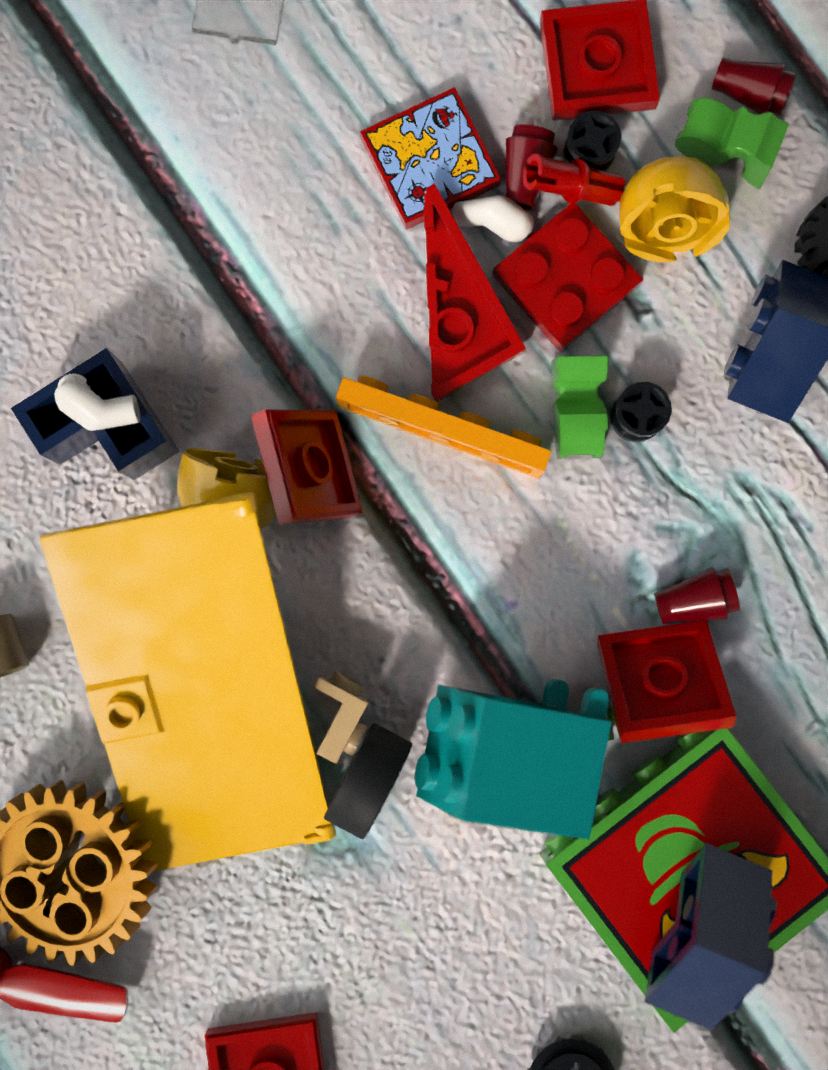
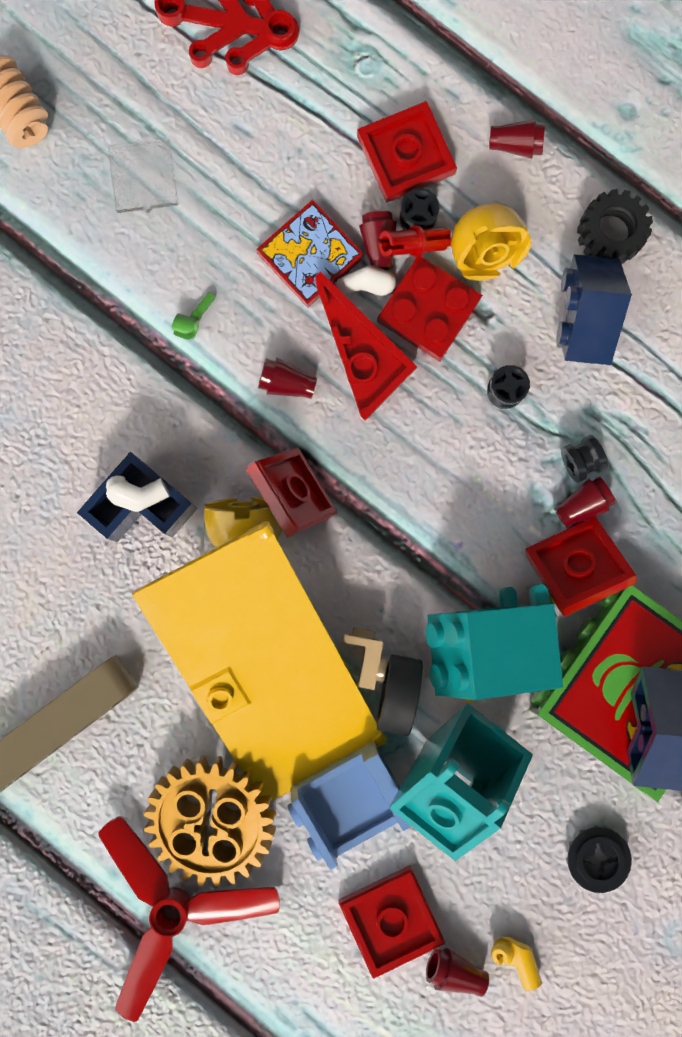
camera: 20 degrees left, 0 degrees up
(238, 207) = (187, 327): none -> bright green hand
(258, 906) = (346, 803): none -> medium blue panel
(346, 315) = (286, 380): none -> dark red cone
(379, 949) = (446, 807): none -> teal container
(464, 433) = (359, 435): light orange plate -> none
(578, 410) = (466, 400): bright green leg -> none
(714, 538) = (584, 458): none -> black wheel
(719, 134) = (504, 180): bright green leg -> none

